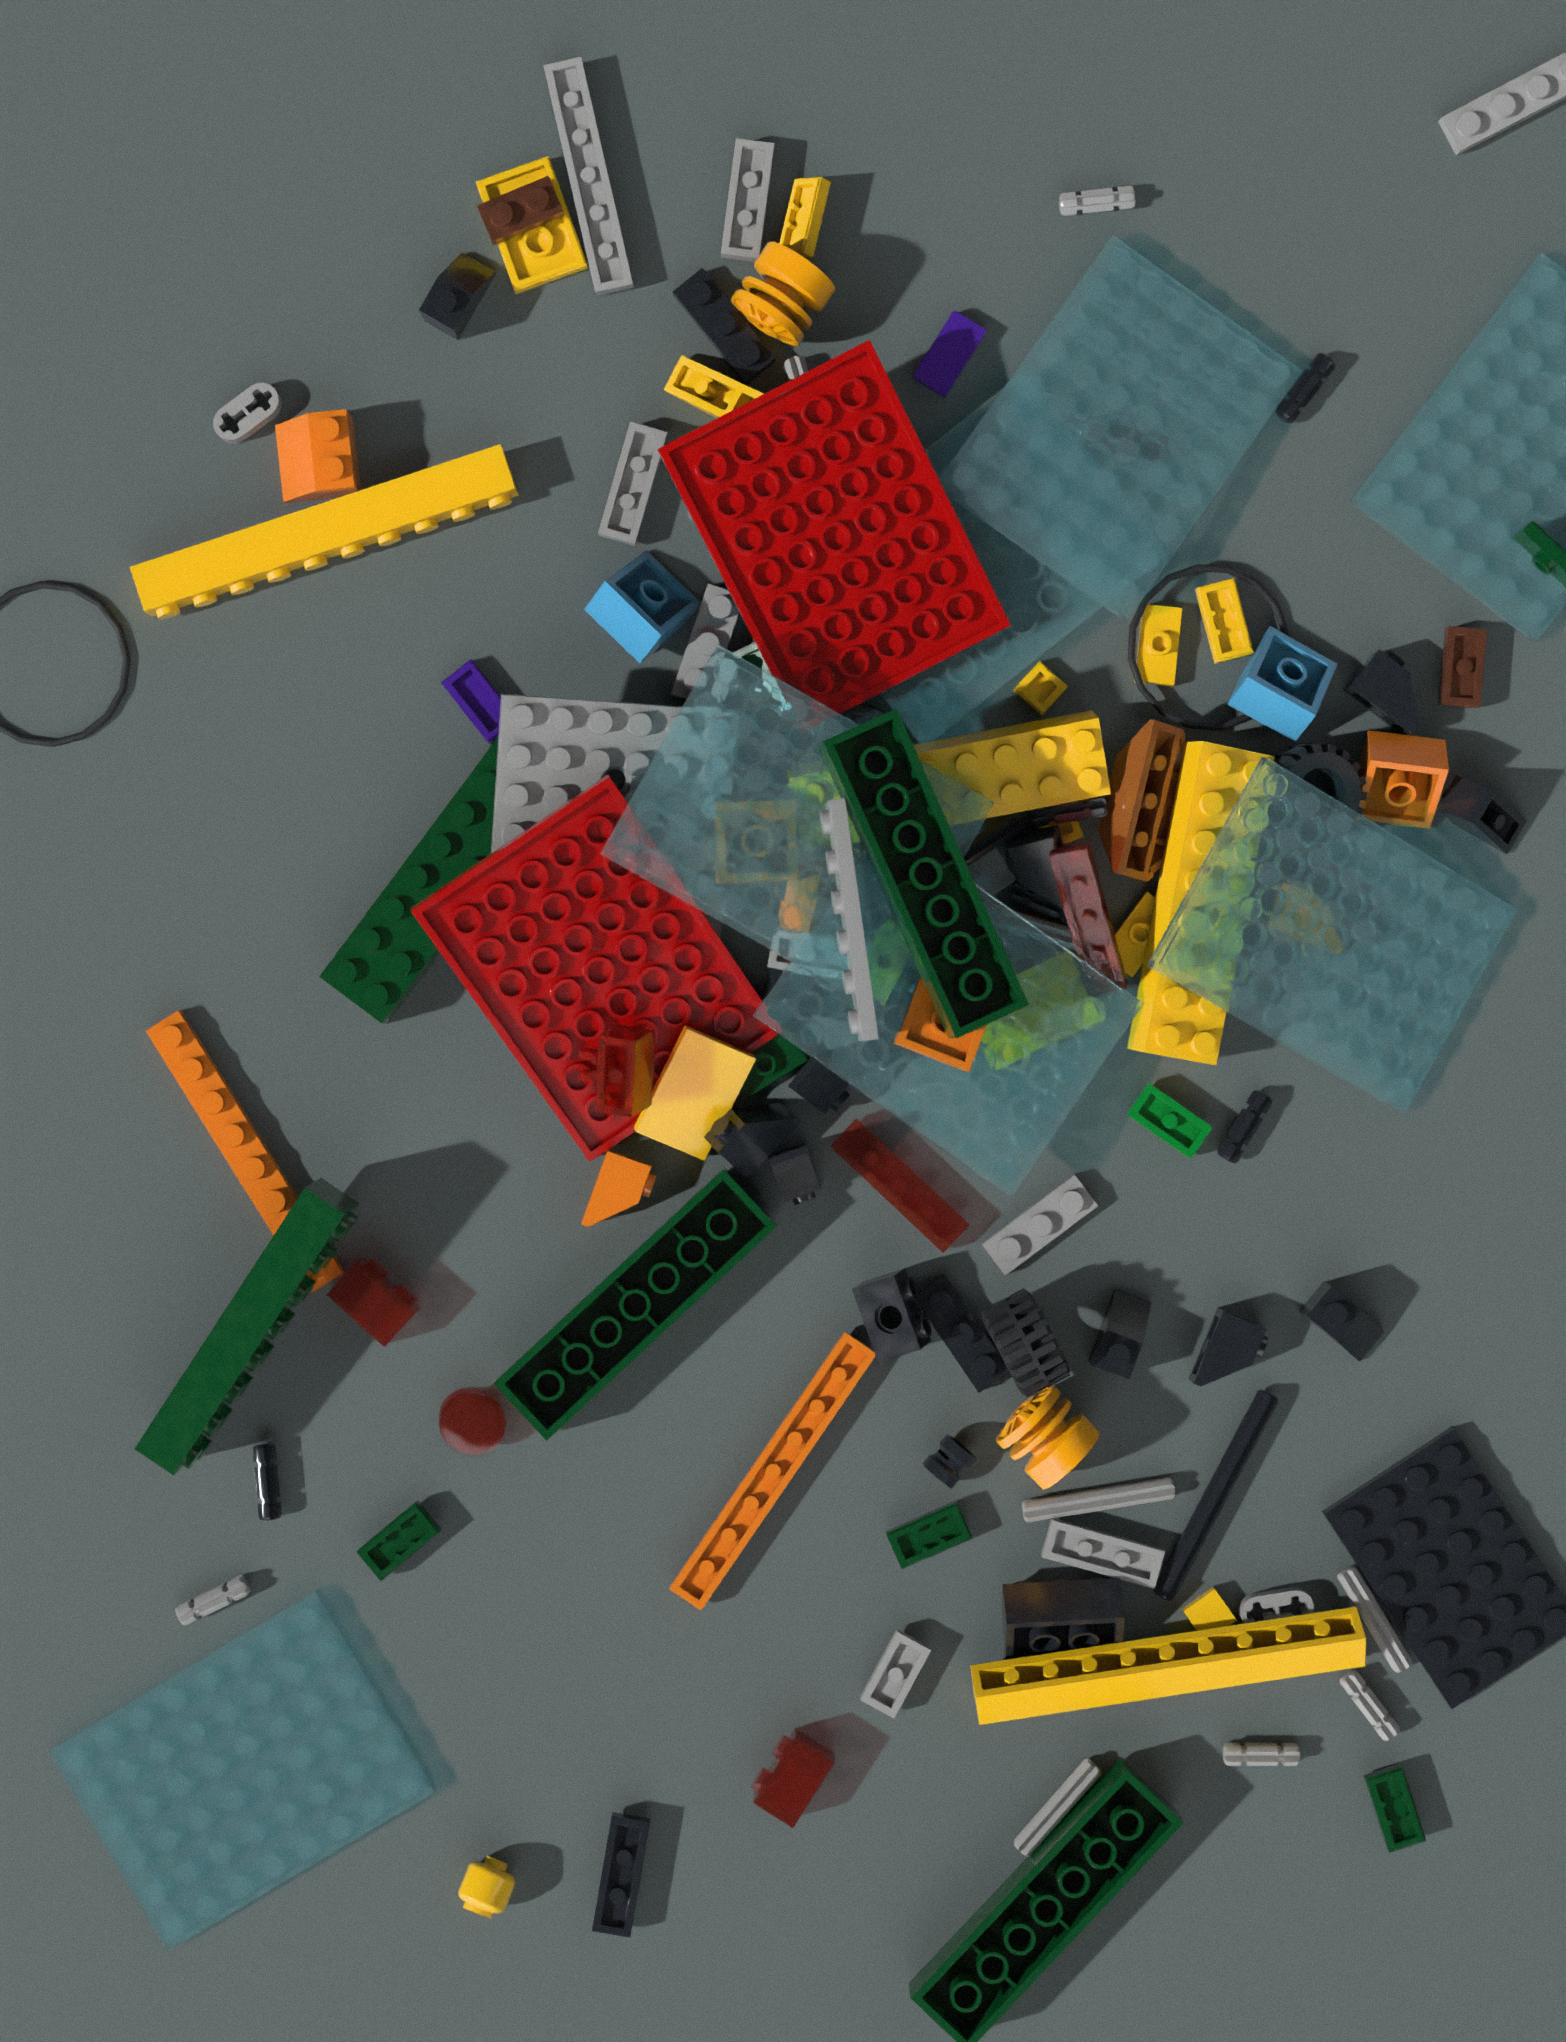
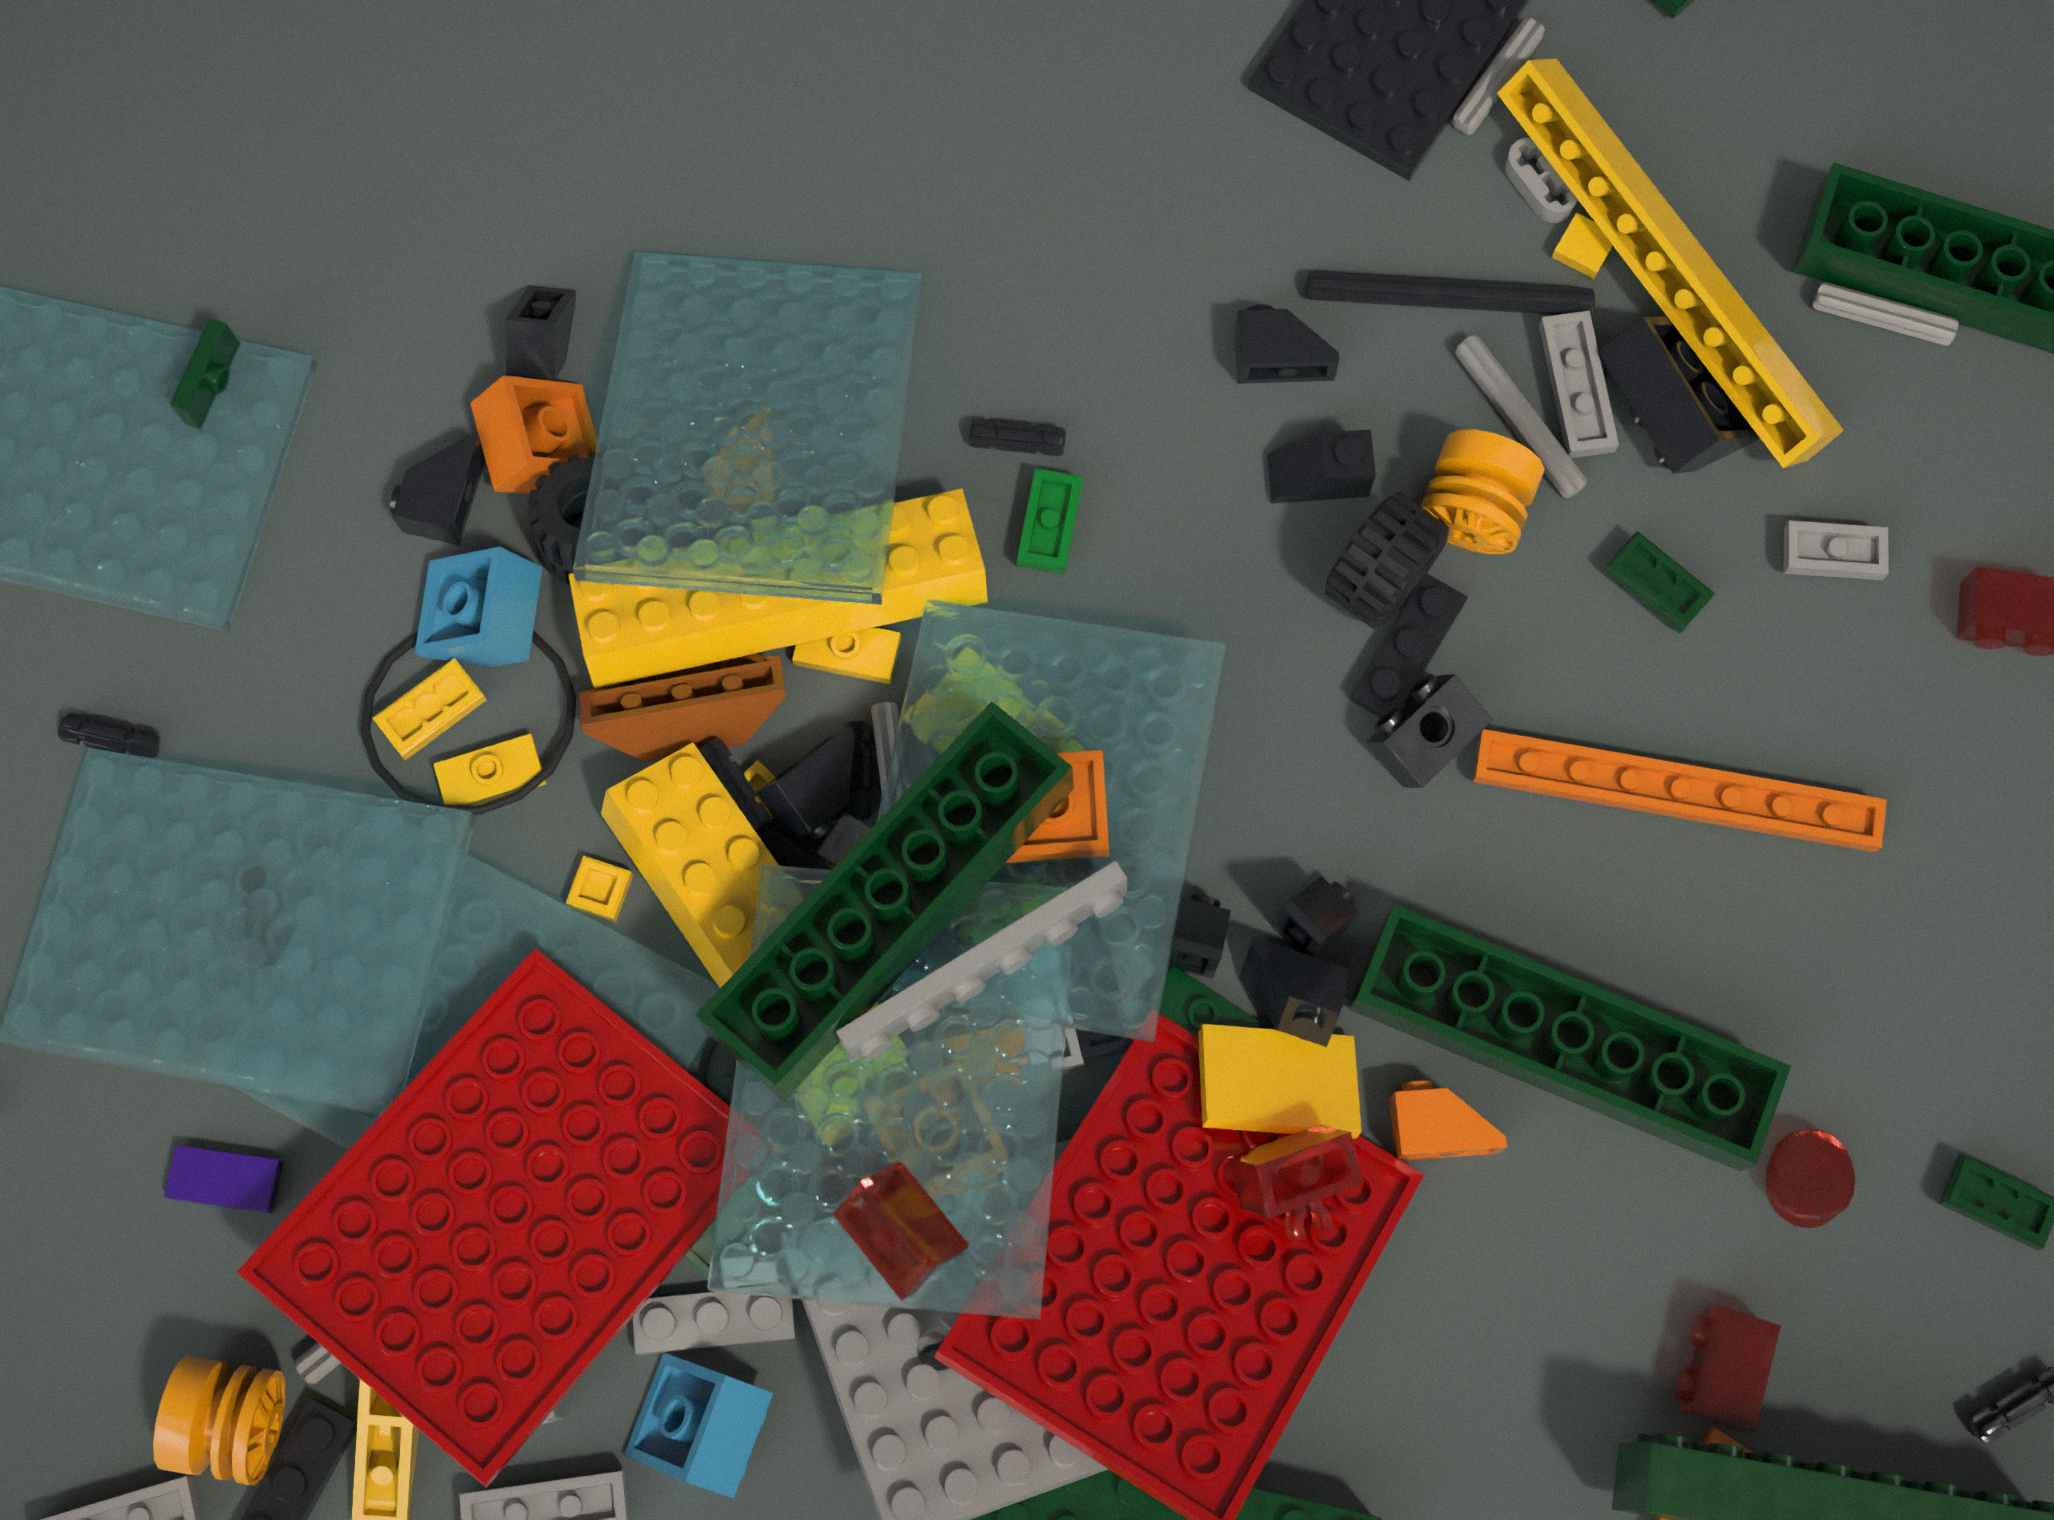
camera: 115 degrees left, 15 degrees down
(696, 785) = (899, 1228): none -> clear red panel
(805, 215) = (104, 1441): yellow plate -> none
(899, 1185) = (1271, 792): clear red plate -> none
(949, 1461) = (1574, 598): black wheel -> none
(1039, 1224) = (1239, 615): light grey plate -> none
(1087, 910) = (844, 709): clear red plate -> none
(1261, 1754) = (1708, 129): light grey axle -> none
(1341, 1321) = (1186, 246): black slope -> none
(1369, 1705) = (1594, 42): light grey axle -> none
(1462, 667) = (377, 423): copper plate -> none

